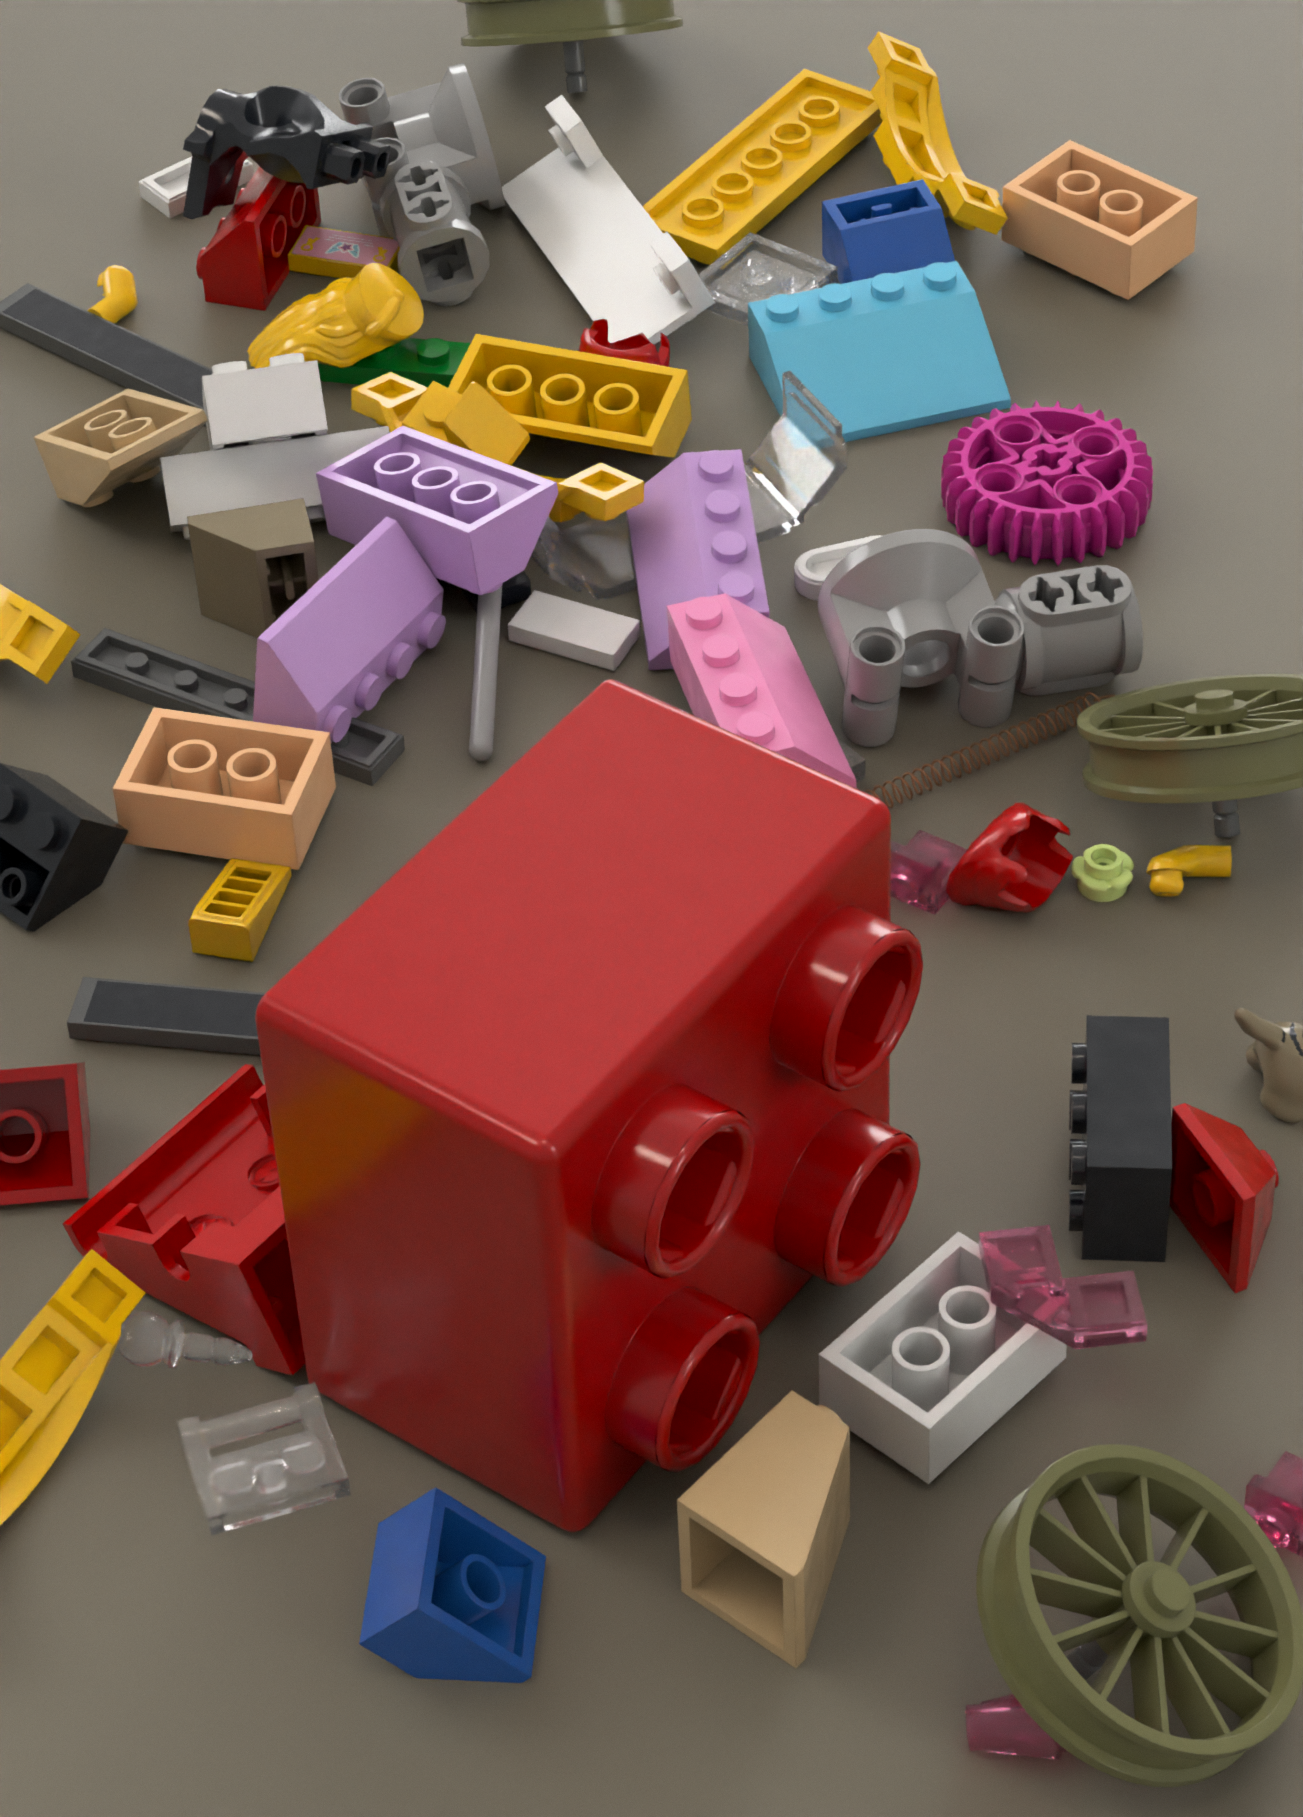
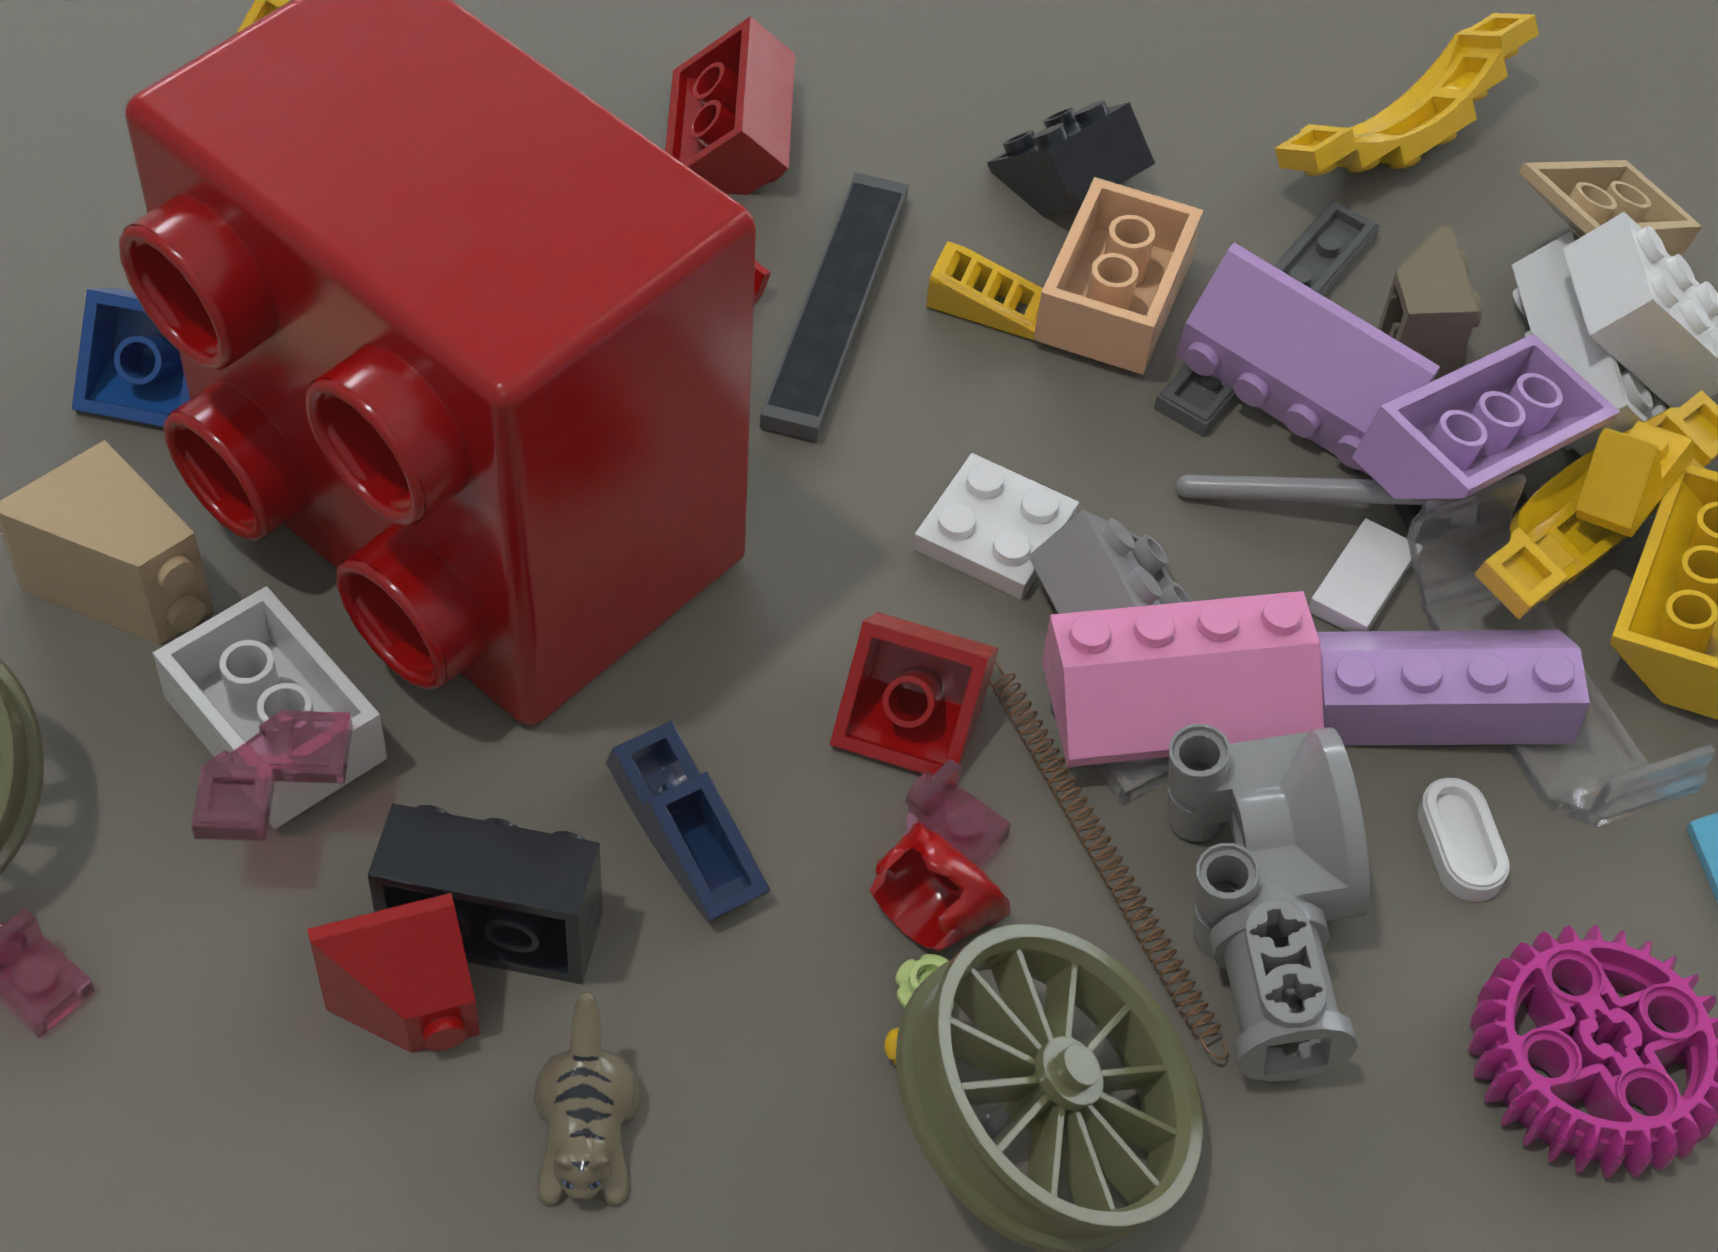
camera: 90 degrees right, 10 degrees up
(978, 1045) = (686, 821): none -> dark blue slope

